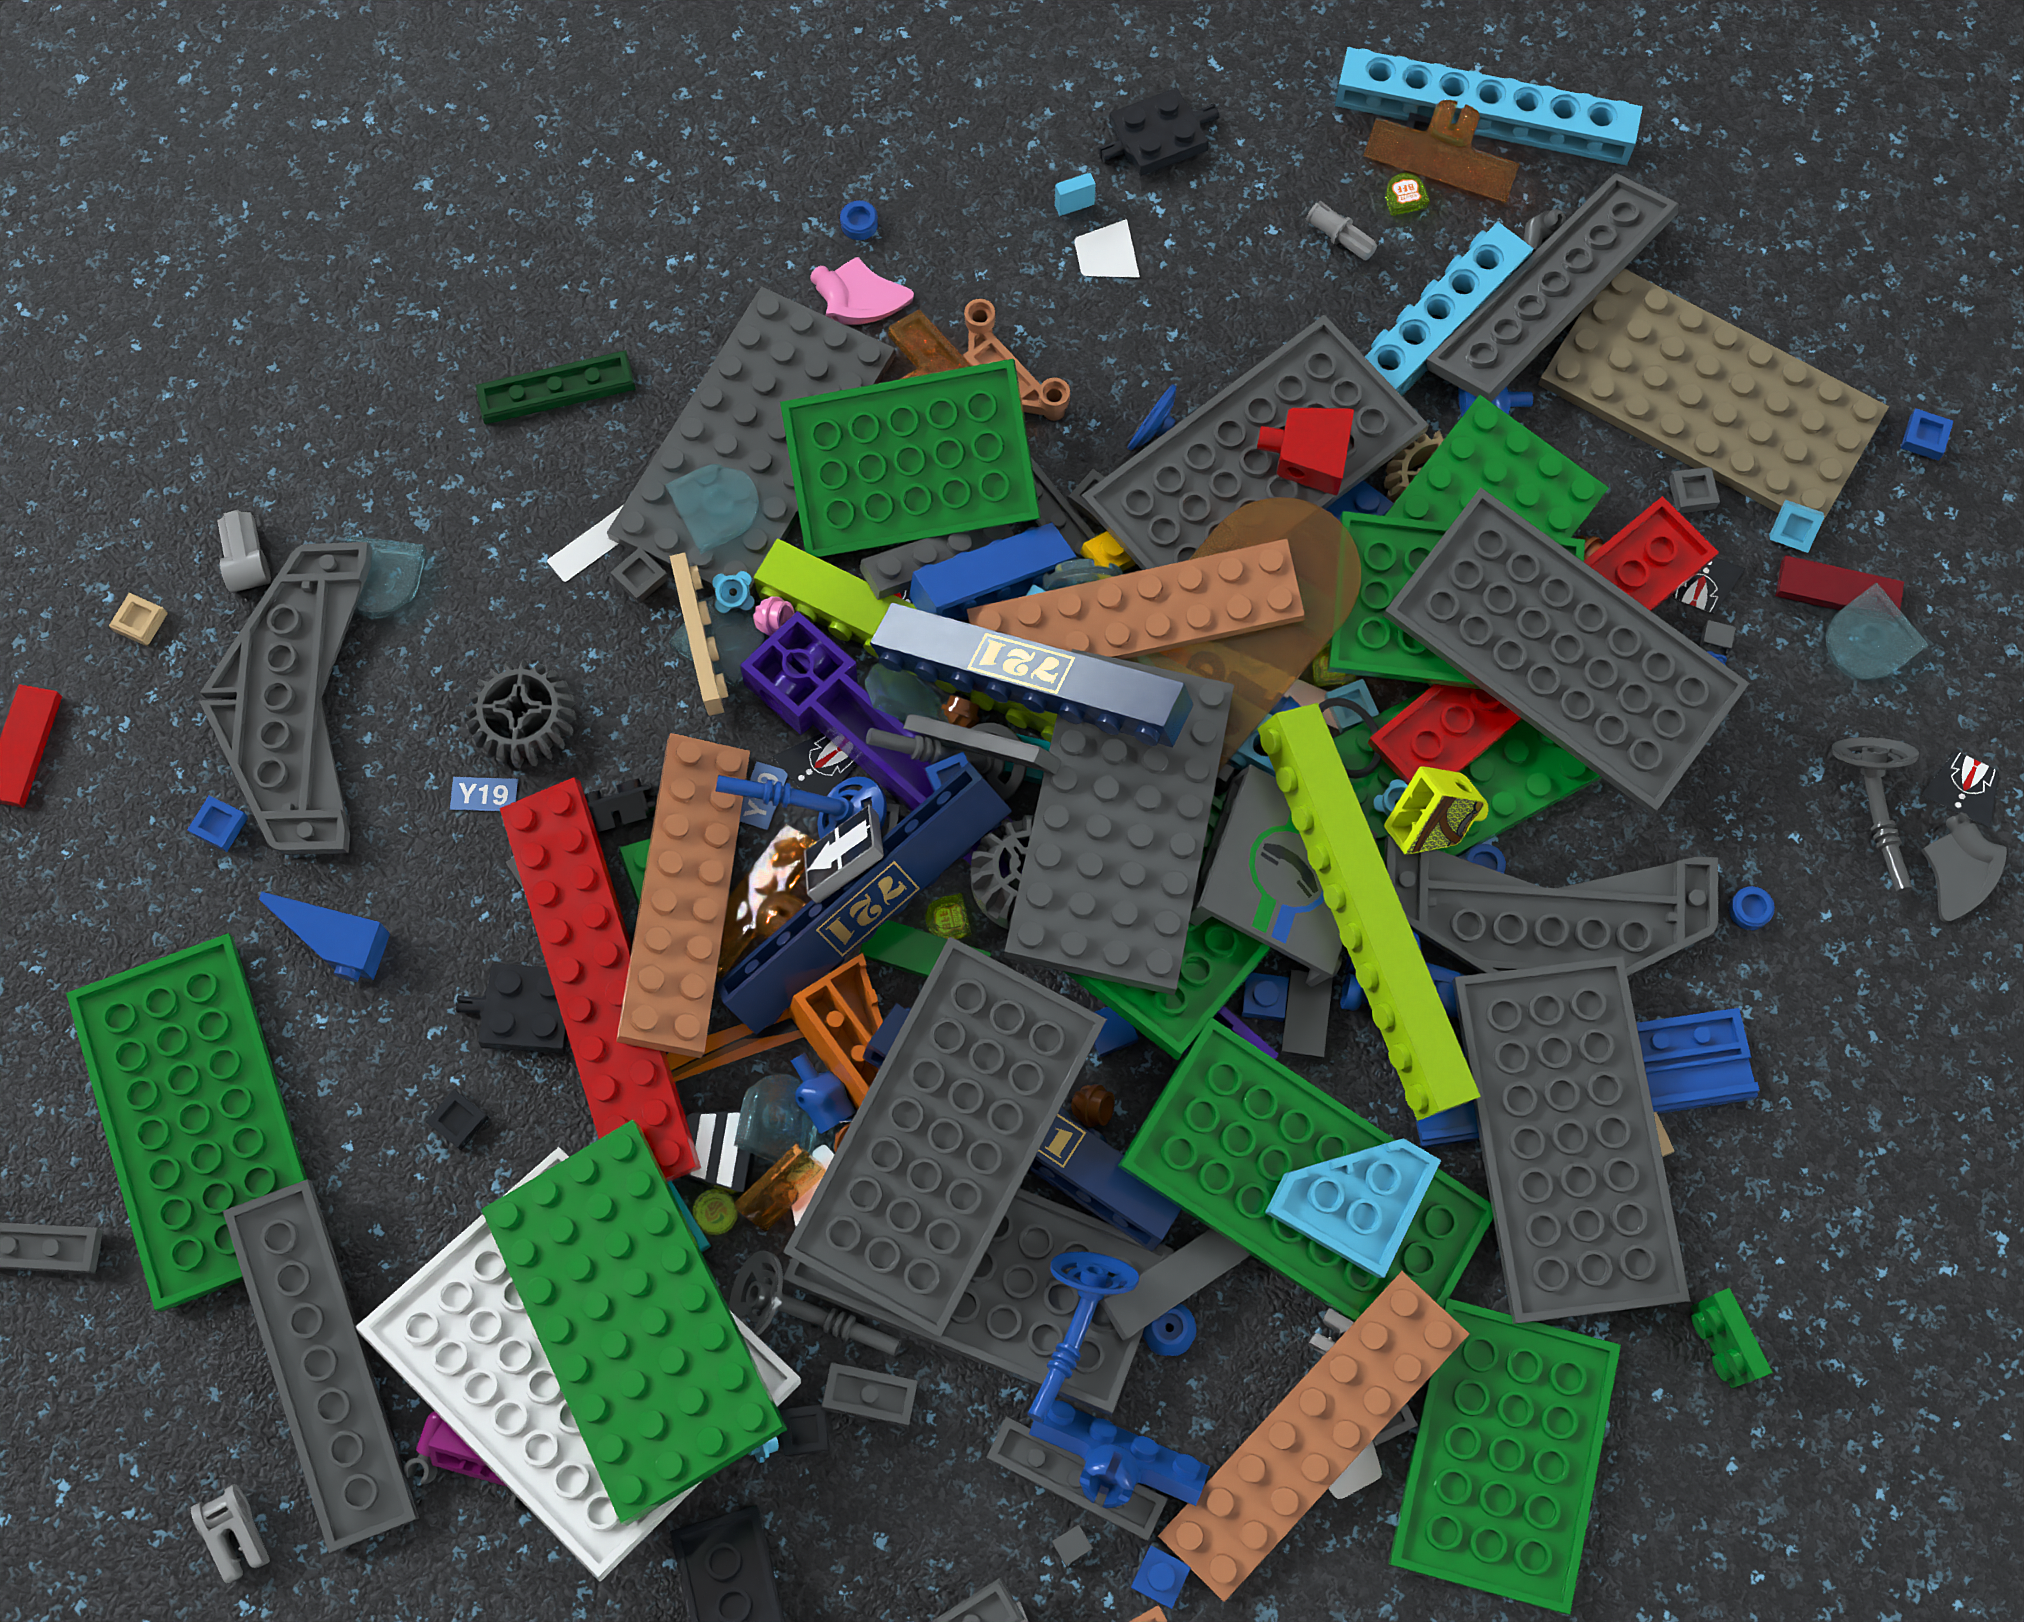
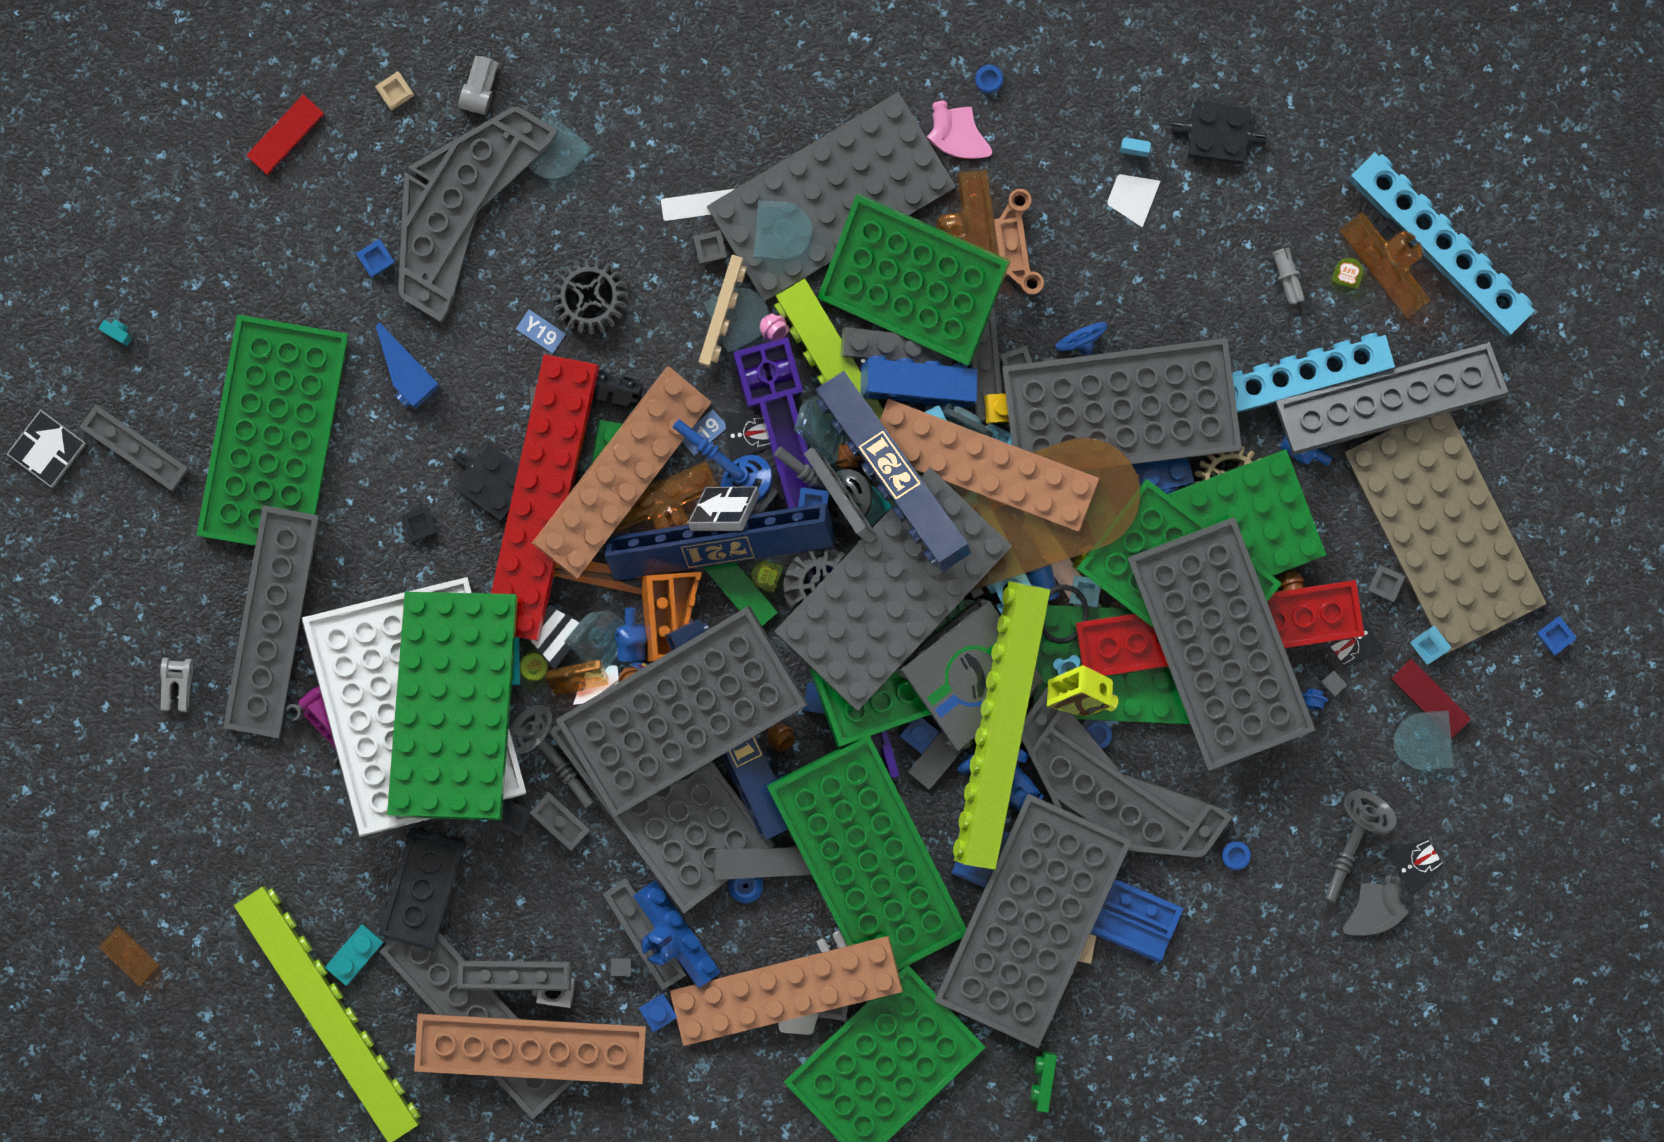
camera: 30 degrees right, 15 degrees up
(555, 387) = (731, 83): dark green tile -> none
(724, 584) = (751, 299): medium azure plate -> none
(1091, 1287) = (712, 841): blue dish -> none
(1311, 446) = (1156, 423): red torso -> none
(1357, 1201) = (888, 884): medium azure plate -> none
(1542, 227) = (1415, 349): dark grey arm -> none

